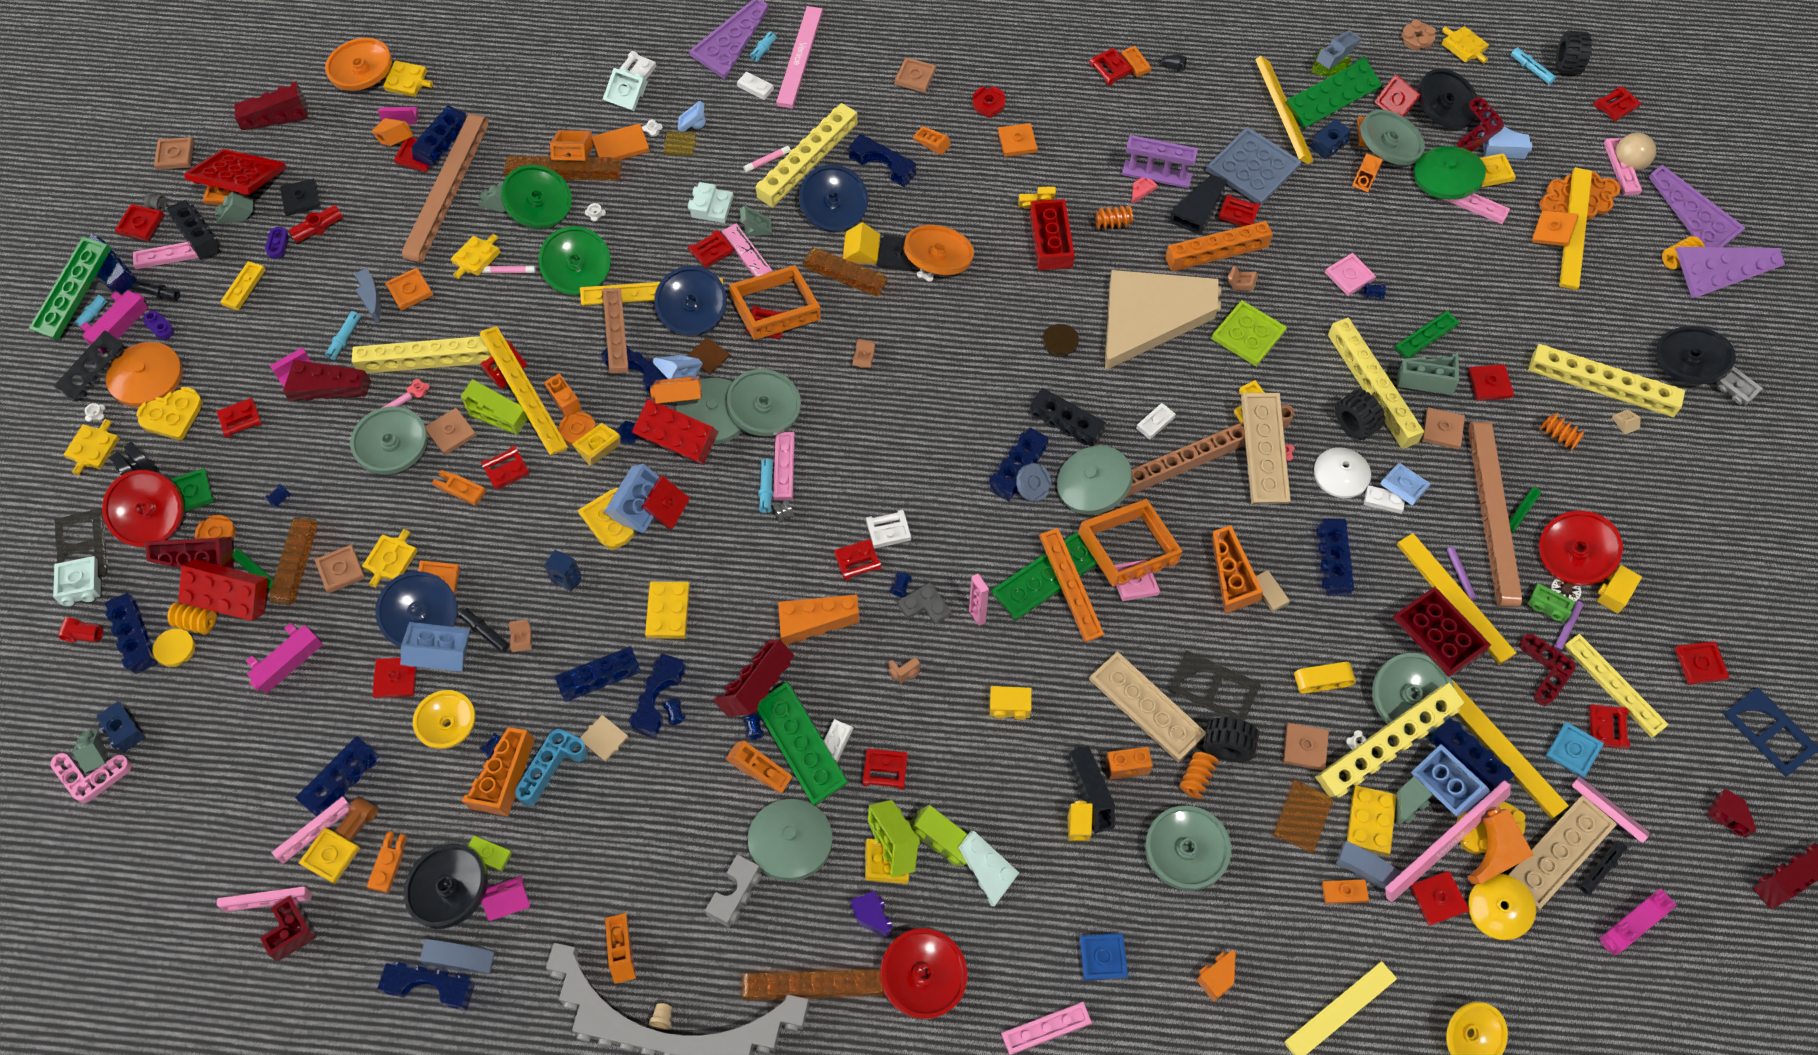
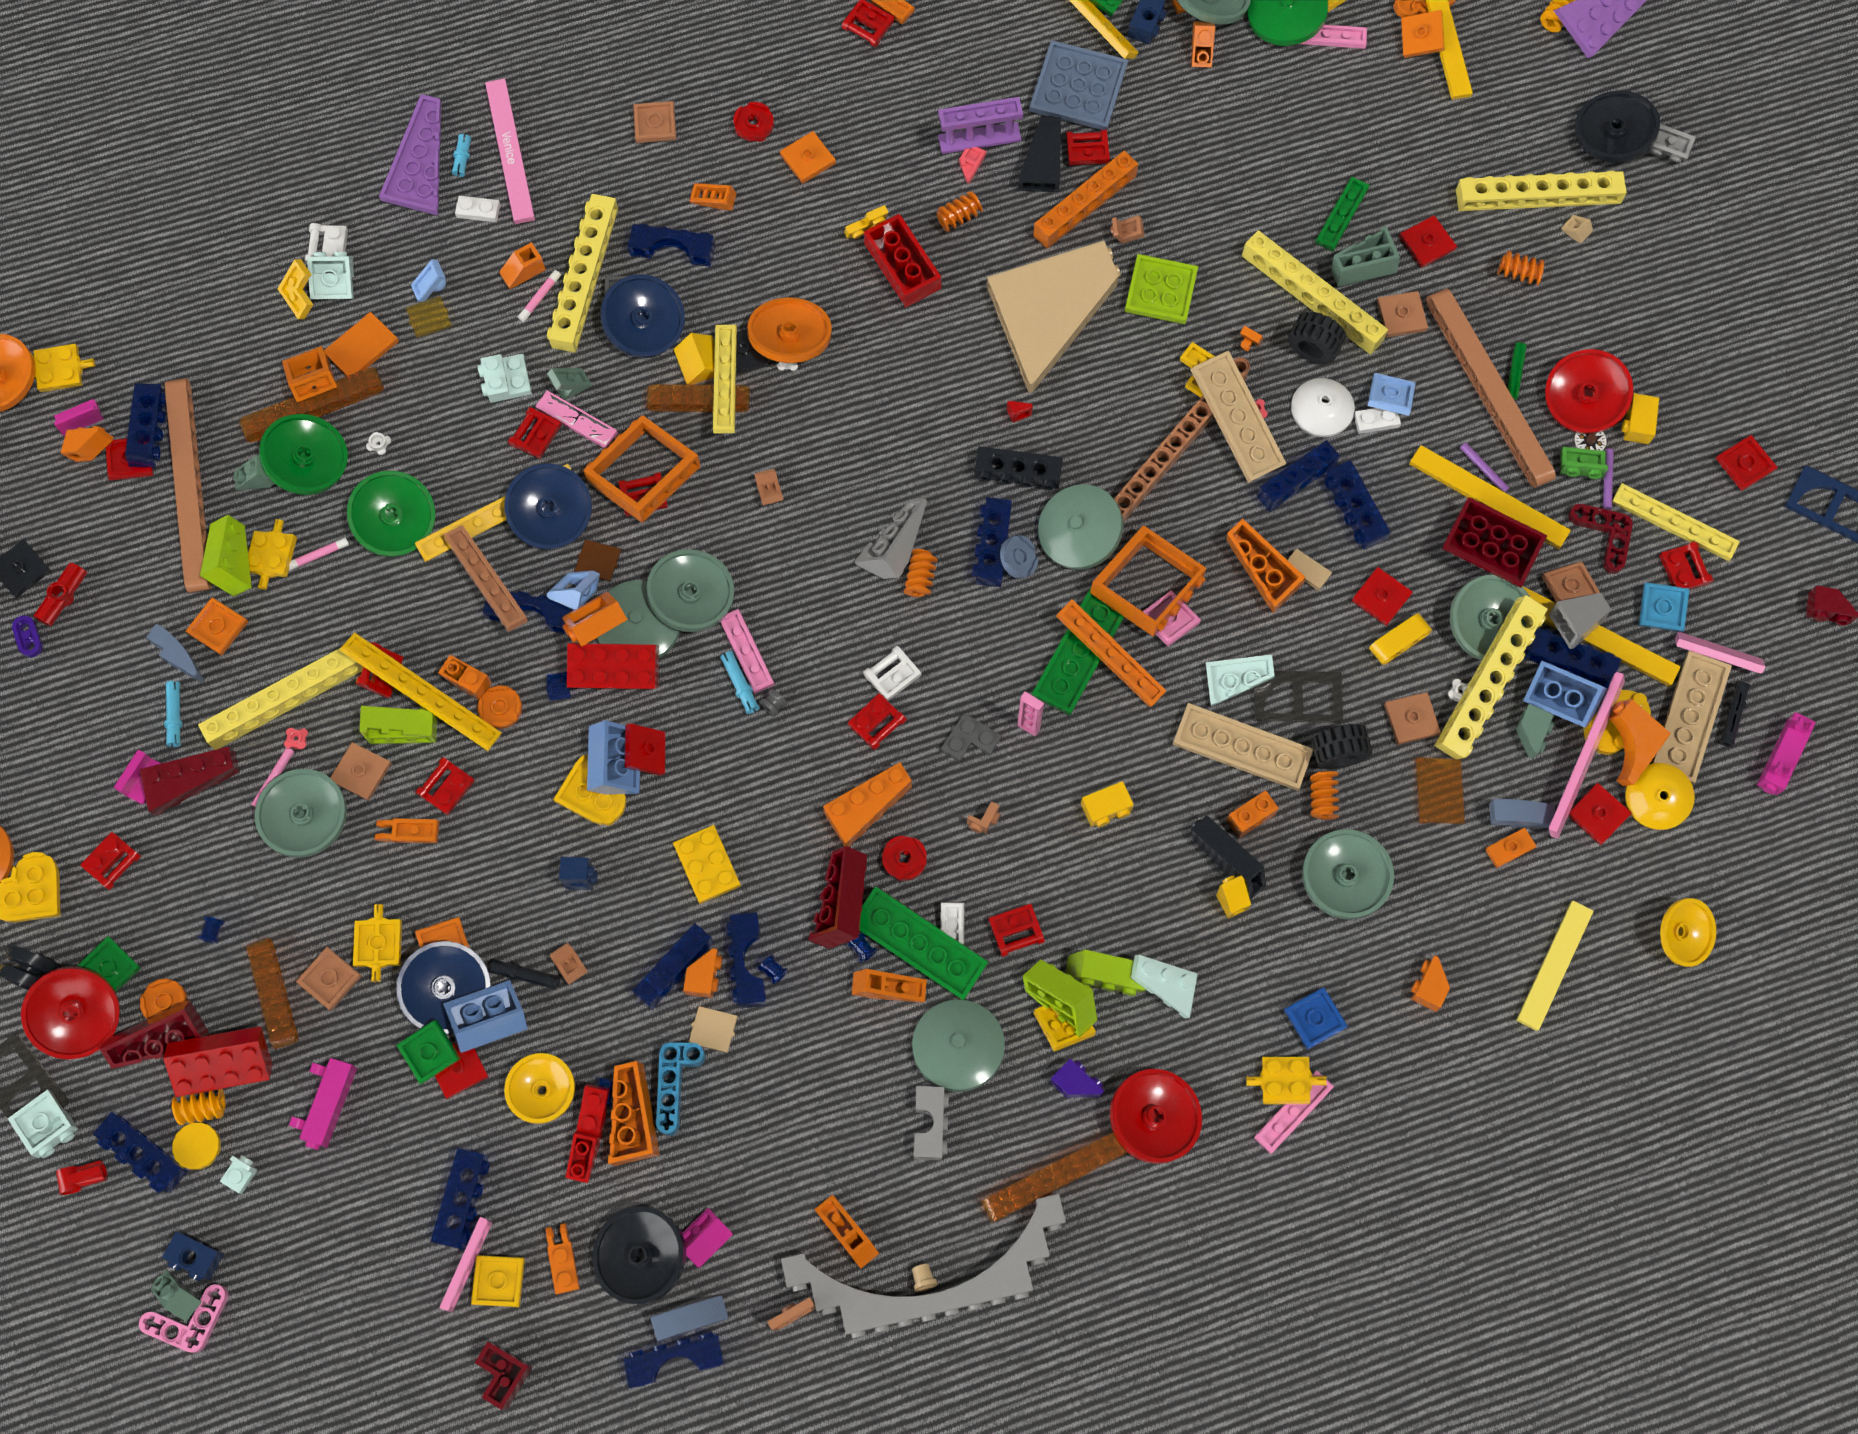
camera: 25 degrees left, 10 degrees up
(191, 682) = (239, 1174): none -> light aqua bracket
(243, 285) = (19, 705): yellow plate -> none
(251, 566) = (228, 1020): green axle -> none
(262, 899) = (456, 1357): bright pink tile -> none
(359, 813) = (505, 1225): dark orange piece -> none
(378, 653) = (428, 1051): none -> green plate
(442, 243) = (227, 556): none -> lime wedge
(462, 773) = (588, 1133): none -> red slope
(492, 854) = (667, 1201): lime plate -> none
(536, 992) = (791, 1313): none -> nougat plate
(594, 86) = (292, 289): none -> yellow plate
(597, 443) = (531, 714): yellow slope -> none
(617, 690) = (701, 975): none -> orange slope
(652, 128) = (387, 316): white plate -> none
(764, 133) = (522, 266): none -> orange slope
(824, 683) = (898, 869): none -> red plate
(870, 264) = (725, 379): none -> light yellow tile
(901, 584) = (936, 729): clear blue bush -> none
(934, 439) = (893, 548): none -> light grey wedge
(948, 463) = (920, 573): none -> orange piece
(1052, 997) = (1286, 1080): none -> yellow plate
(1060, 340) = (968, 380): dark brown tile -> none
(1089, 376) = (1019, 410): none -> red slope
(1155, 421) = (1111, 432): white plate -> none
(1168, 647) = (1235, 676): none -> light aqua wing
(1294, 514) = (1298, 476): none -> clear blue brick
(1304, 396) = (1250, 337): none -> orange tile
(1324, 638) = (1382, 596): none -> red plate
(1350, 274) = (1235, 175): bright pink plate -> none
(1372, 820) = (1505, 765): yellow plate -> none
(1374, 290) = (1269, 184): clear blue bush -> none
(1492, 724) = (1579, 617): none -> light grey slope
(1497, 698) = (1570, 582): none -> nougat plate

